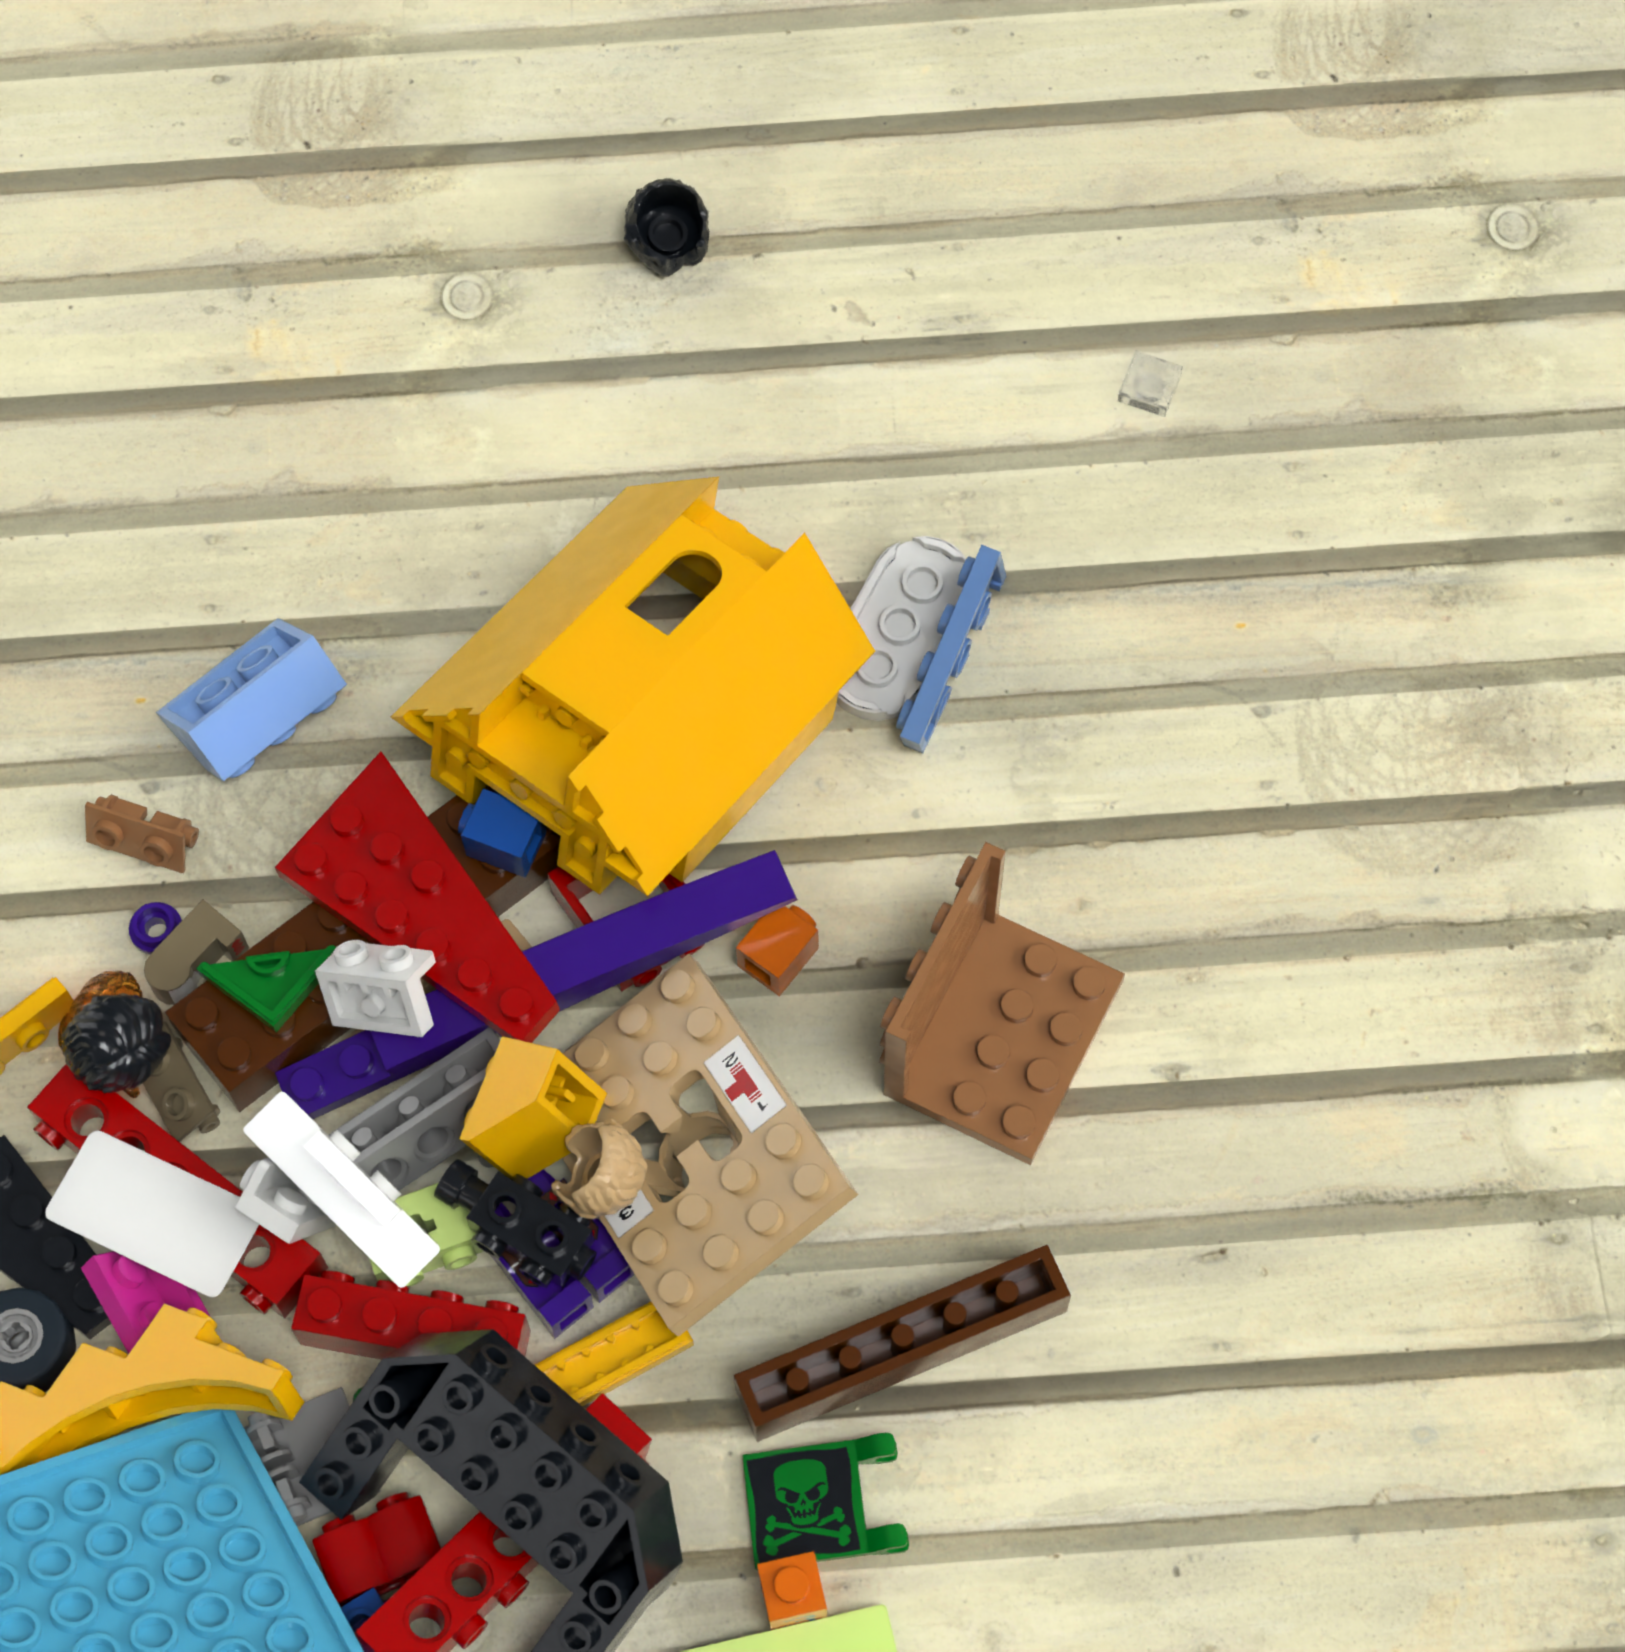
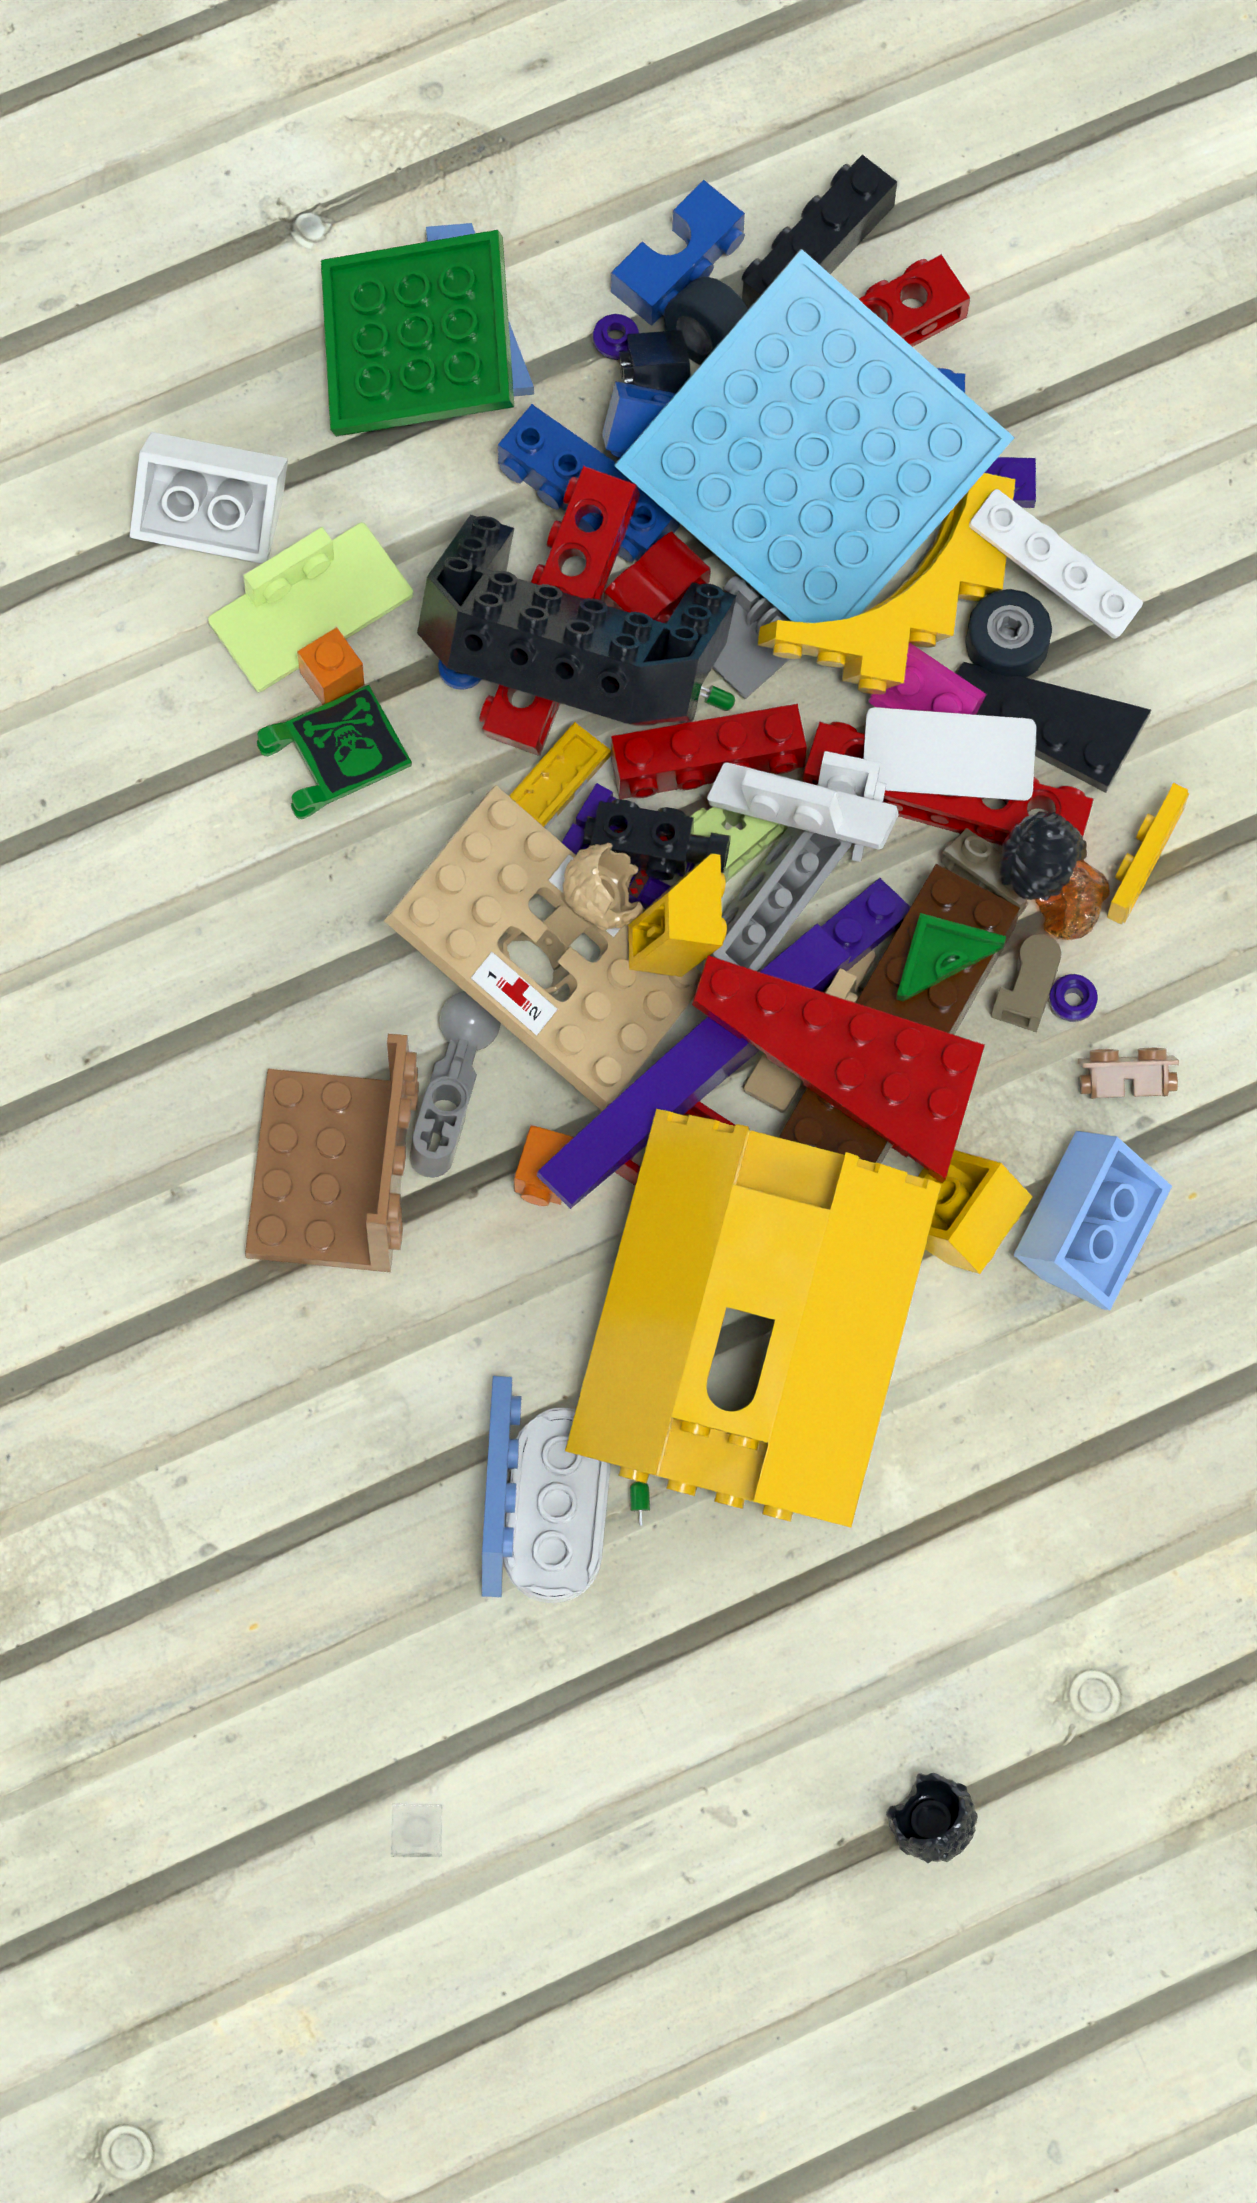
camera: 155 degrees right, 5 degrees up
(363, 728) = (974, 1211): none -> yellow slope
(377, 987) = (849, 970): white bracket -> none
(501, 833) = (810, 1127): blue brick -> none
(839, 1074) = (467, 1030): none -> light grey beam
(902, 1343) = (315, 875): reddish brown brick -> none

